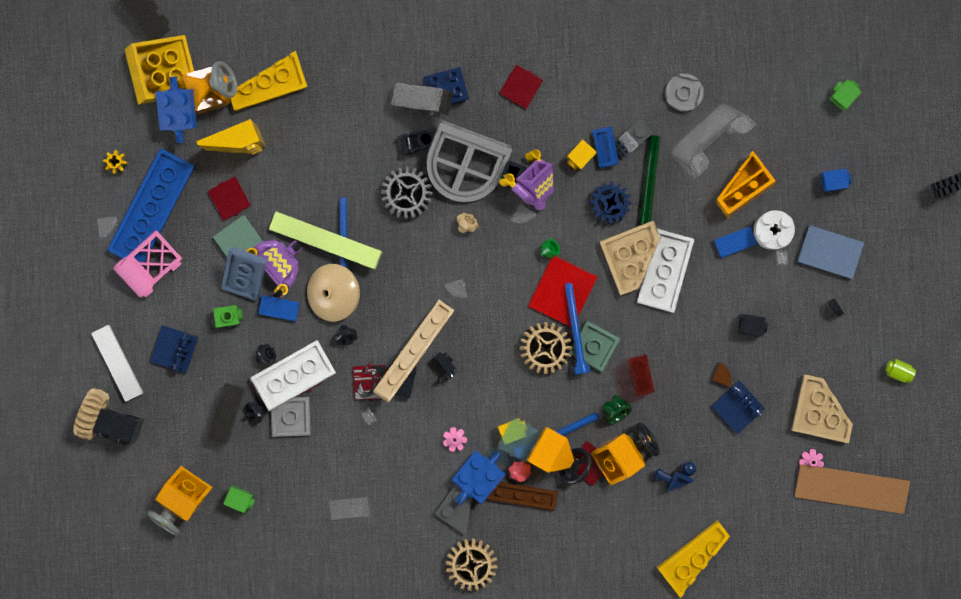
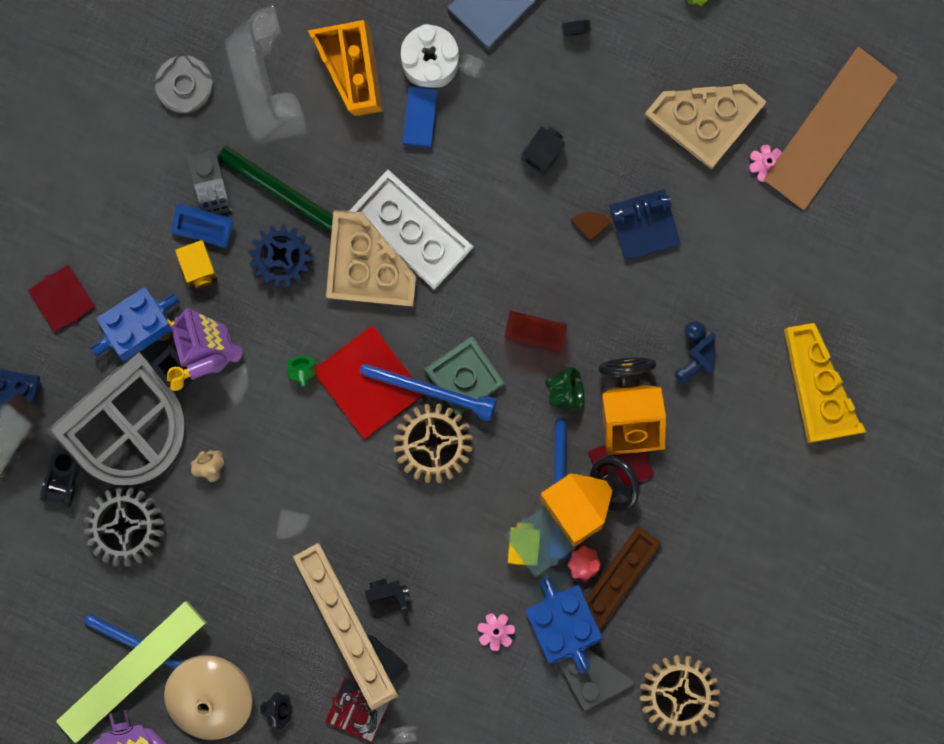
camera: 70 degrees left, 5 degrees down
(527, 138) = (134, 324): none -> blue plate

